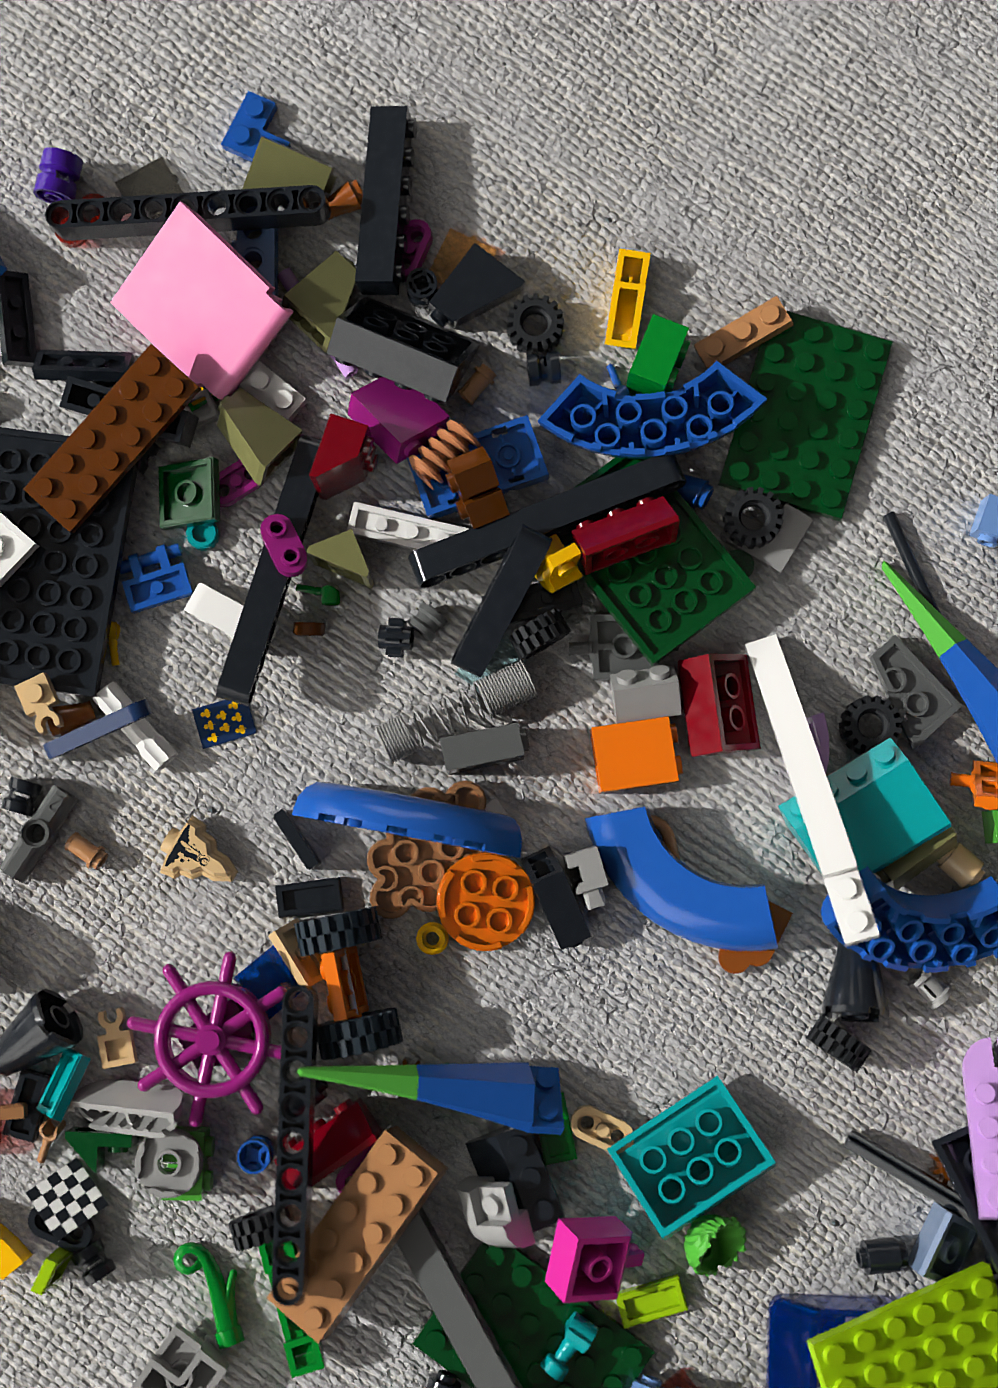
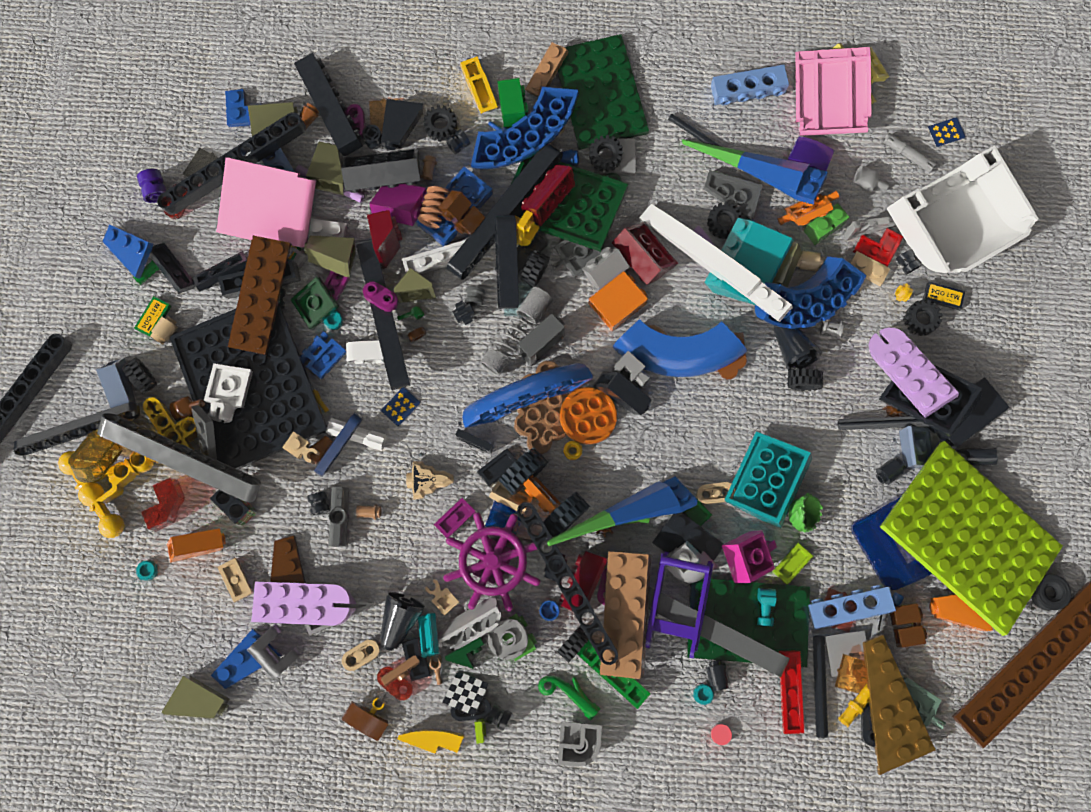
camera: 30 degrees left, 5 degrees down
(202, 935) = (454, 518): none -> magenta plate
(411, 1297) = (675, 628): none -> dark purple piece

